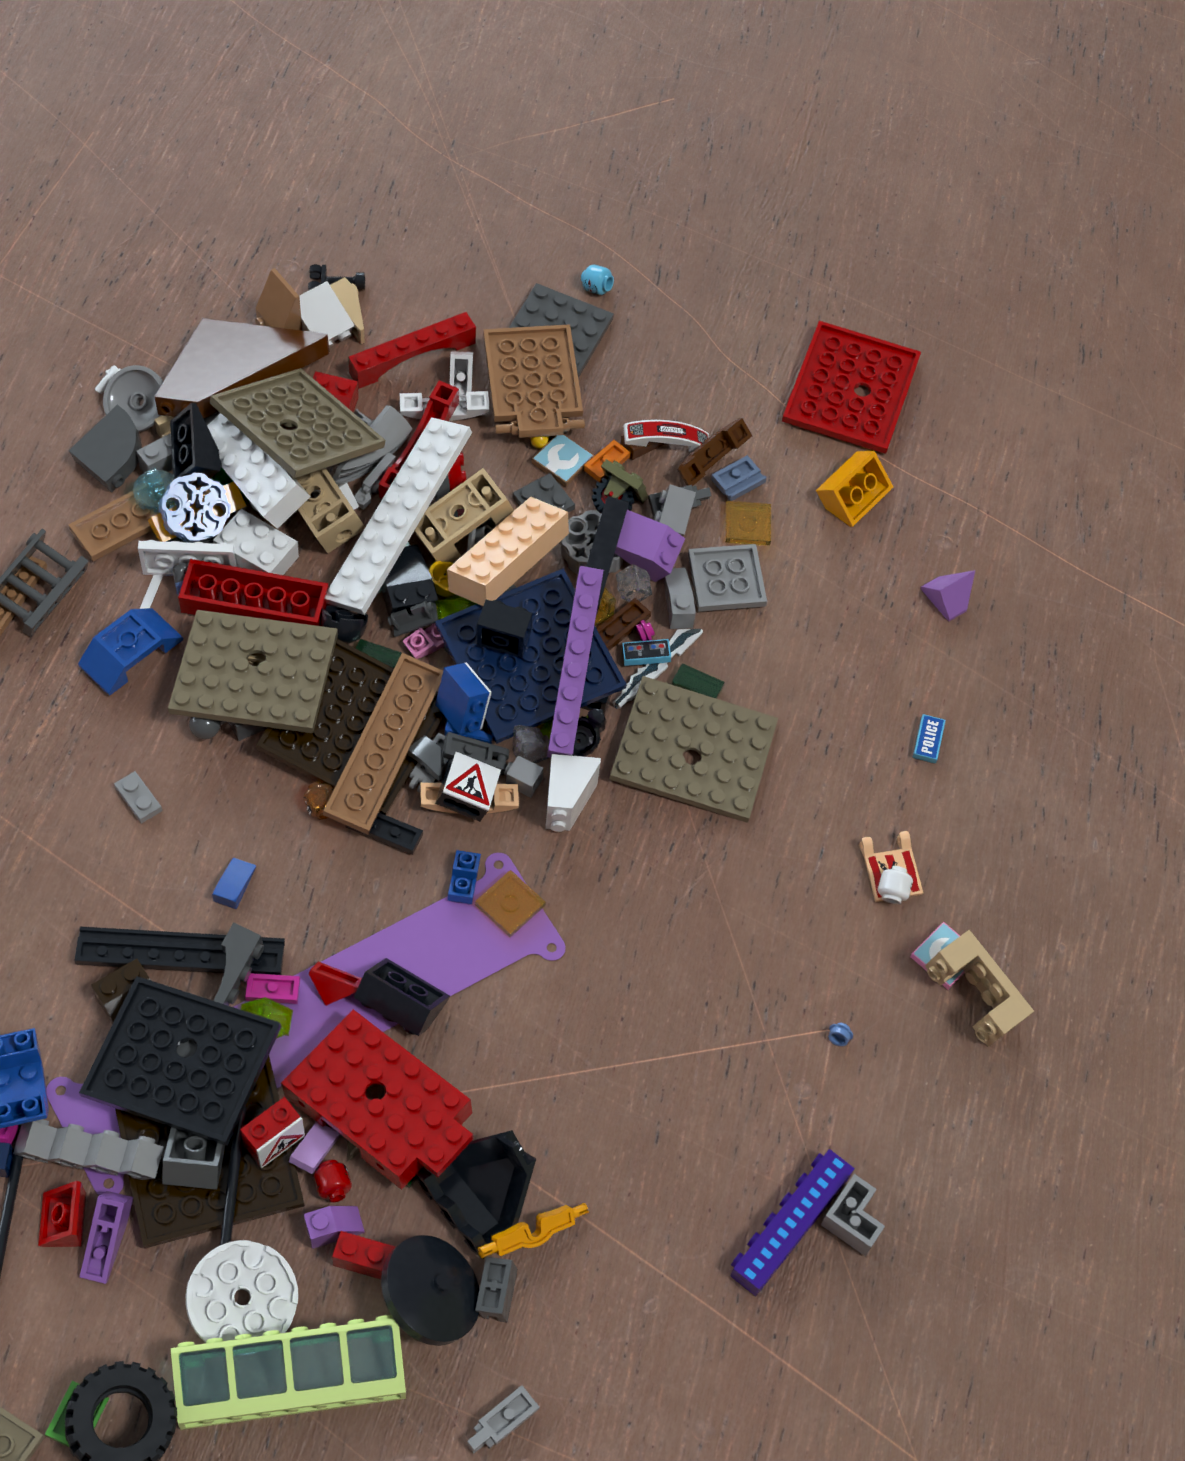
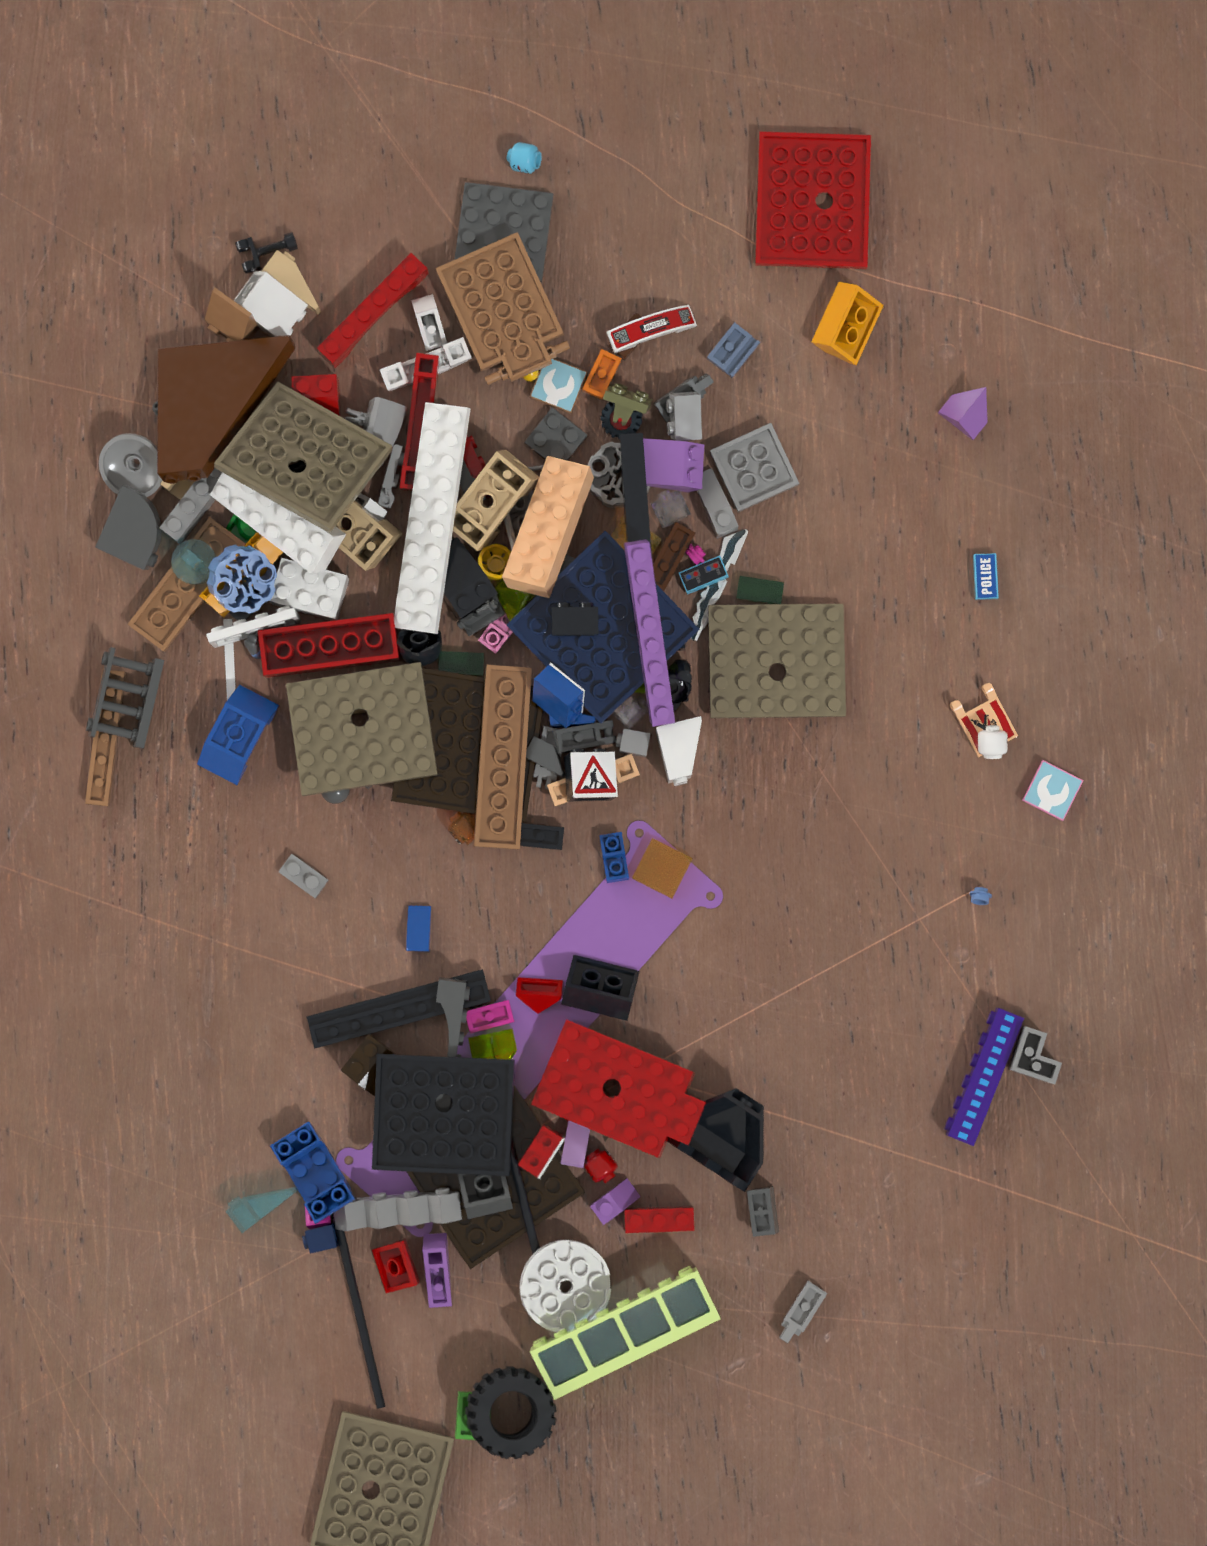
camera: 10 degrees left, 25 degrees up
(103, 383) = (98, 443): white plate -> none
(193, 445) = (215, 516): black slope -> none
(430, 1290) = (713, 1234): black dish -> none
(521, 1236) = (769, 1163): light orange piece -> none
(712, 450) = (697, 330): reddish brown slope -> none
(748, 523) = (756, 397): clear yellow tile -> none
(984, 973) = (1116, 839): tan plate -> none

